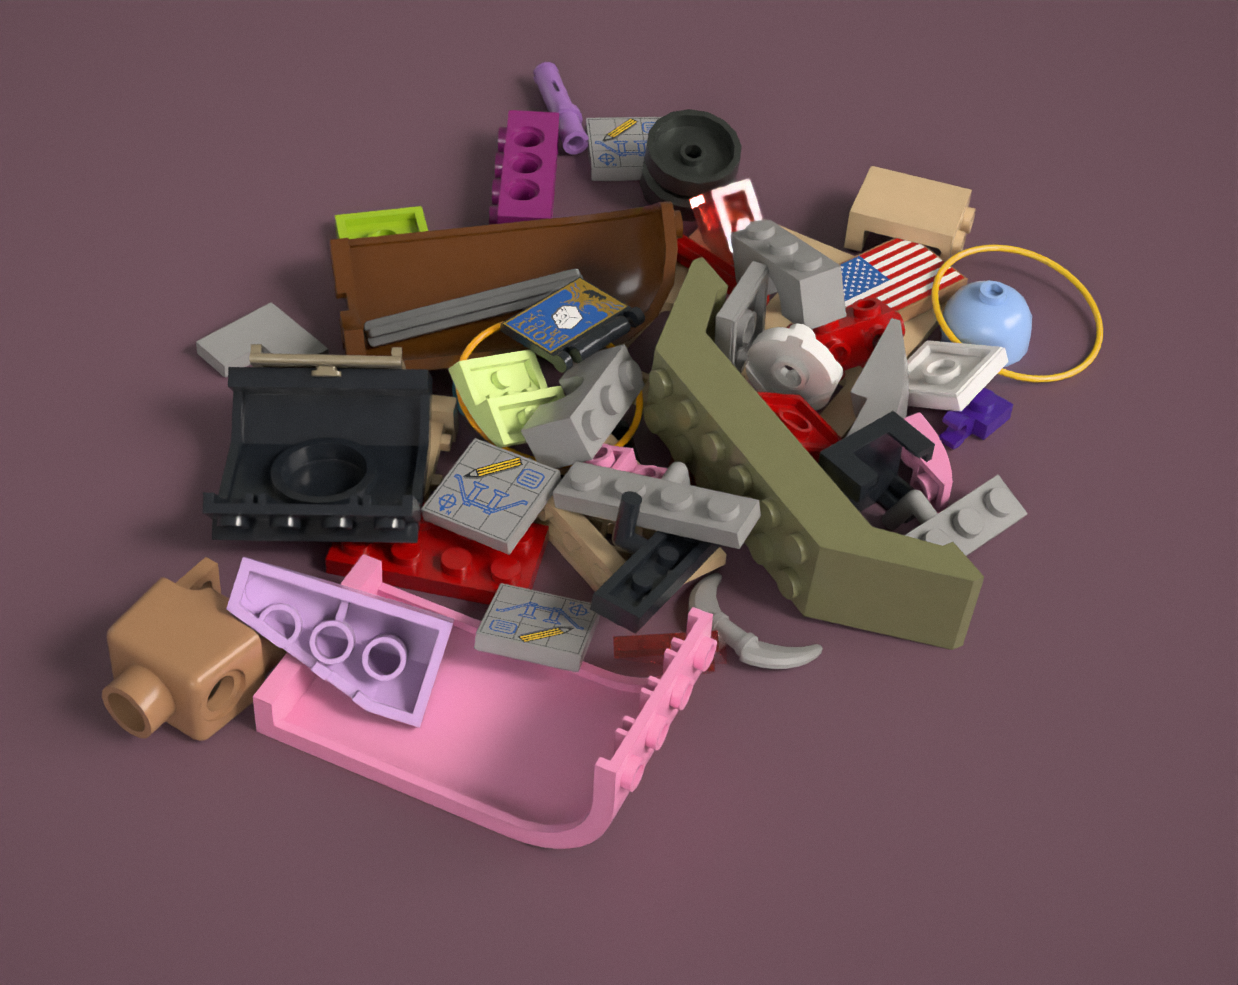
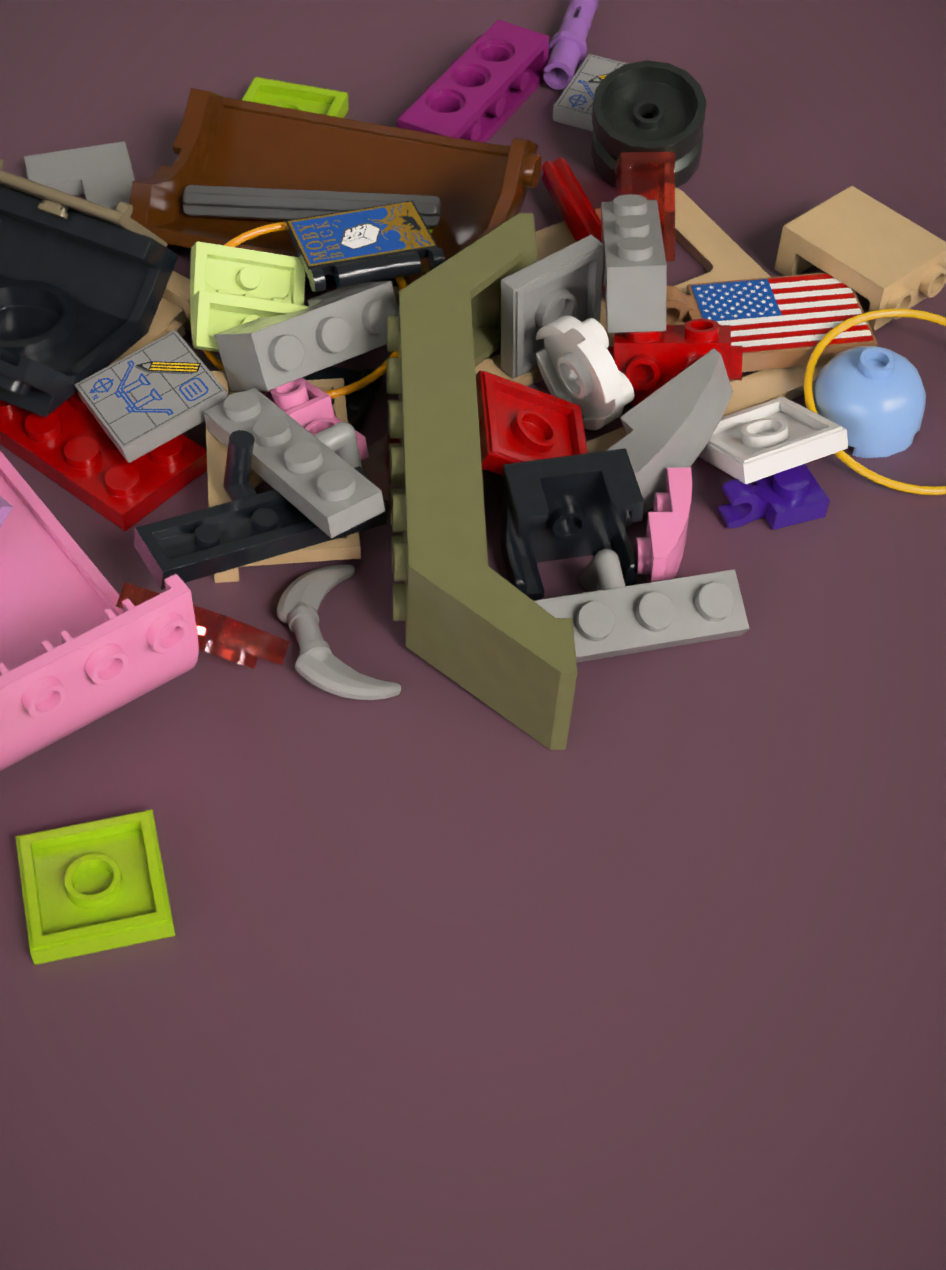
camera: 30 degrees right, 5 degrees up
(537, 628) = (85, 547): light grey tile -> none
(723, 869) = (93, 887): none -> lime tile

